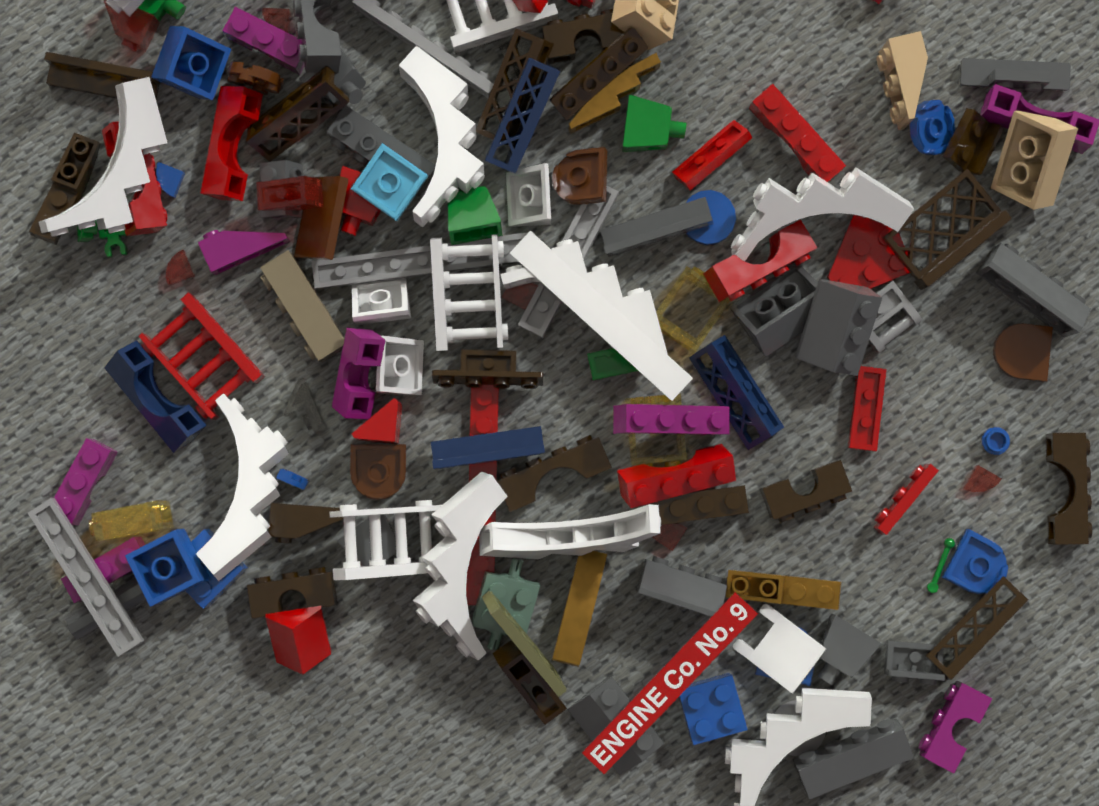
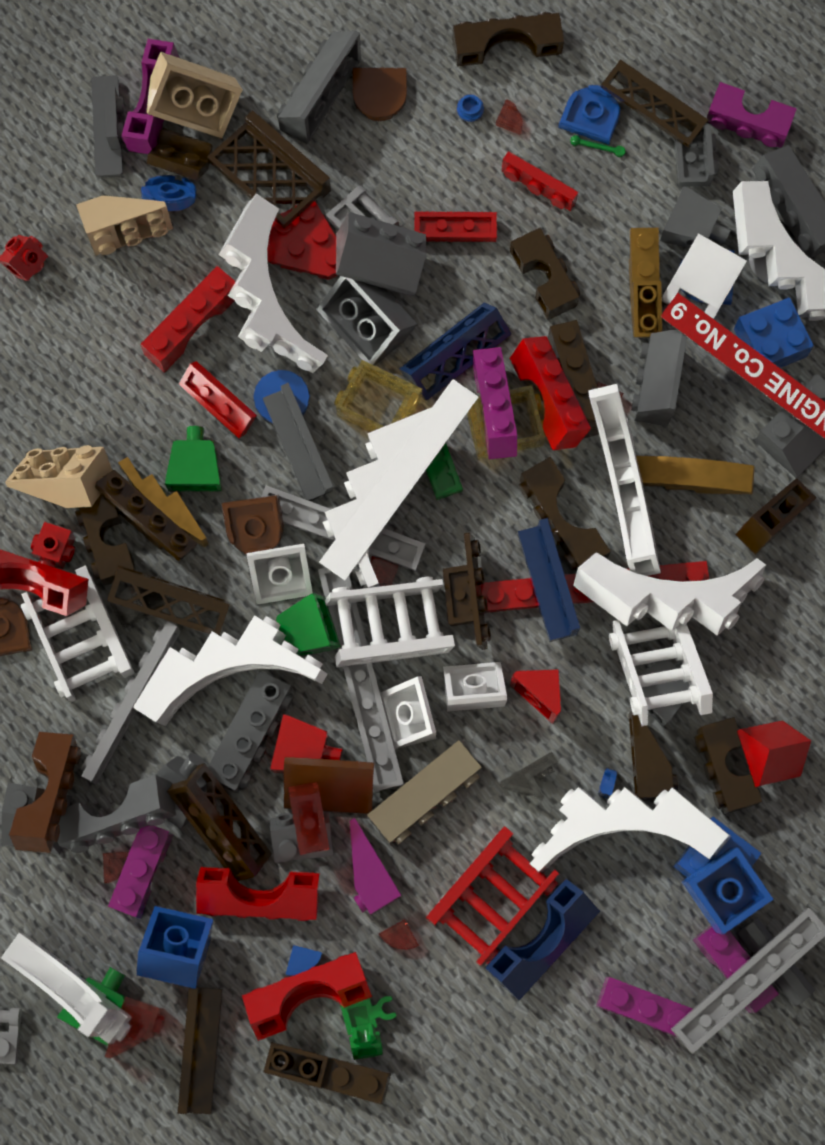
camera: 95 degrees left, 10 degrees down
(131, 520) = (681, 945): clear yellow window -> none
(138, 129) = (305, 998): white arch -> none
(260, 78) = (185, 874): reddish brown plate -> none
(352, 392) = (510, 728): magenta arch -> none
(378, 469) = (585, 696): reddish brown tile -> none
(389, 182) = (283, 713): medium azure plate -> none
(514, 593) = (703, 547): sand green plate -> none
(524, 643) = (731, 527): olive tile -> none
(531, 117) = (198, 580): dark blue fence -> none
(734, 275) = (341, 357): red arch -> none

